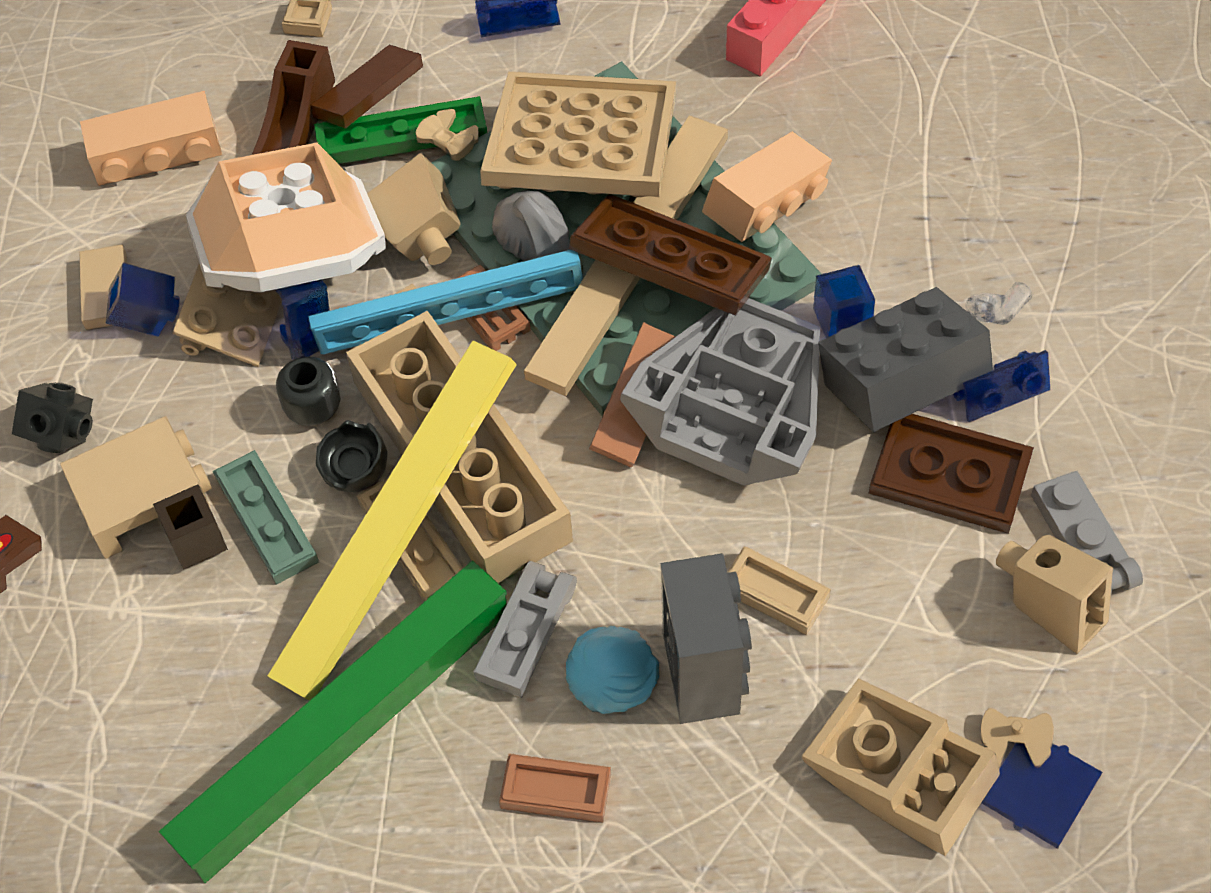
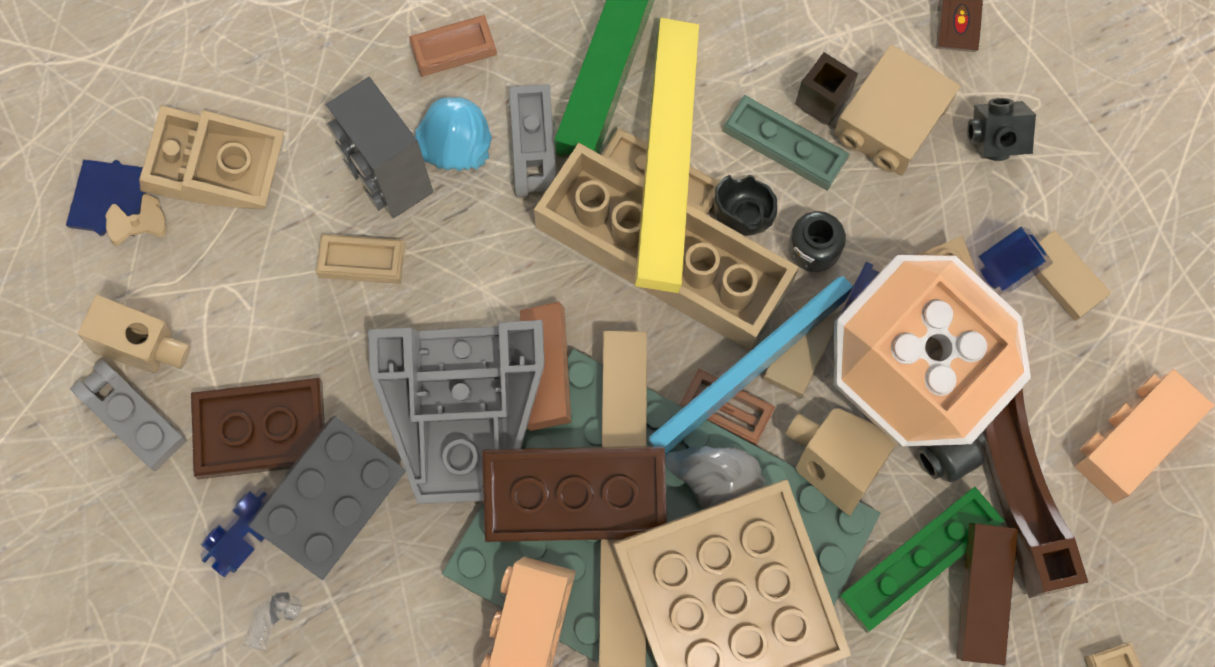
camera: 150 degrees right, 15 degrees up
(436, 131) = (883, 561): tan piece -> none
(842, 299) = (404, 534): clear blue brick -> none

